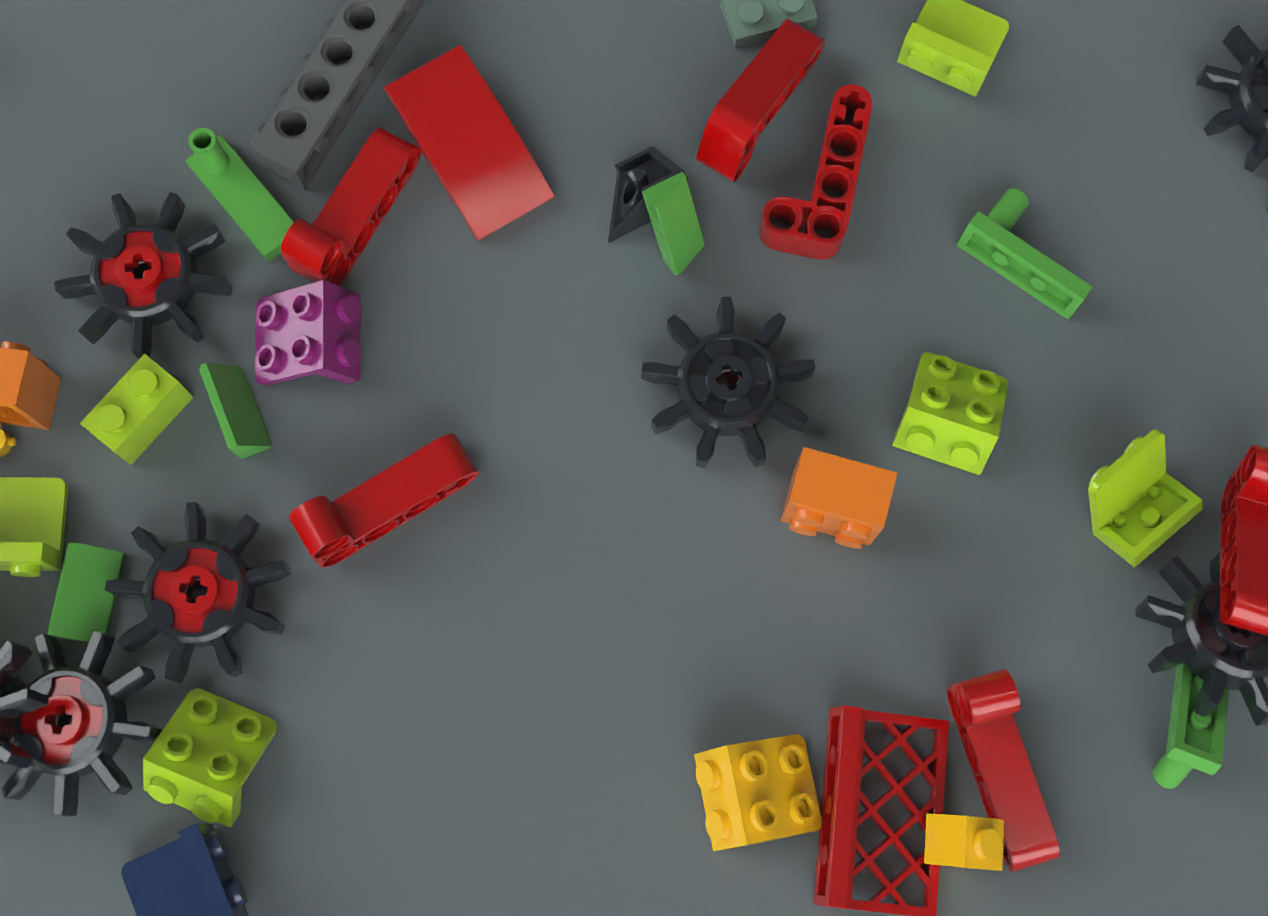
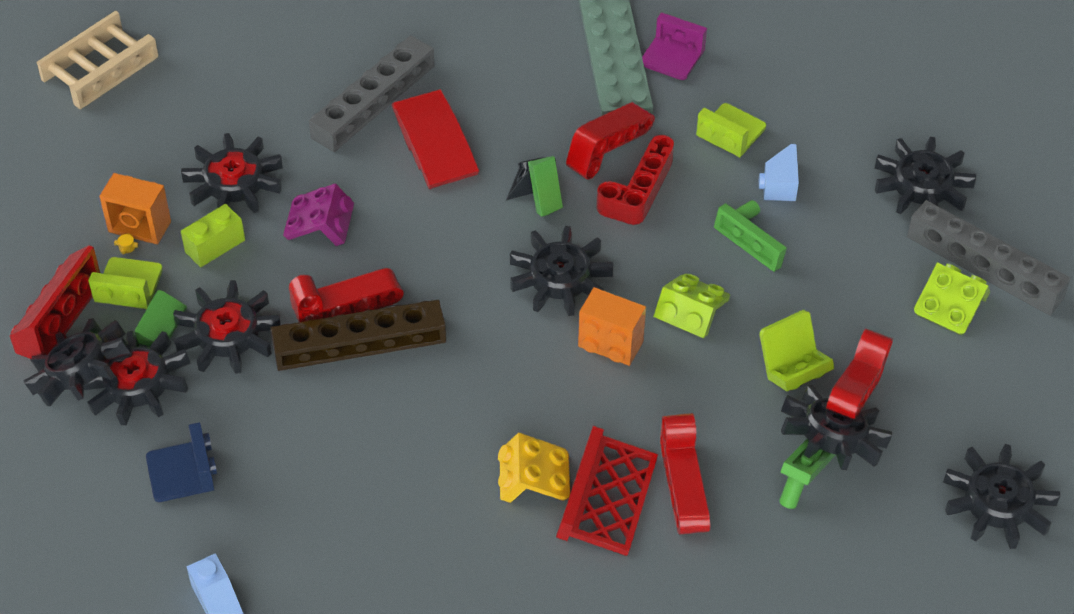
camera: 10 degrees right, 25 degrees down
(206, 756) = (209, 403): lime bracket -> none
(235, 409) = (269, 245): bright green slope -> none
(238, 191) = (296, 145): bright green piece -> none
(302, 599) = (358, 334): none -> dark brown brick
(353, 210) = (360, 160): red beam -> none
(964, 841) = (652, 507): yellow brick -> none
(1055, 130) = (781, 176): none -> light blue slope

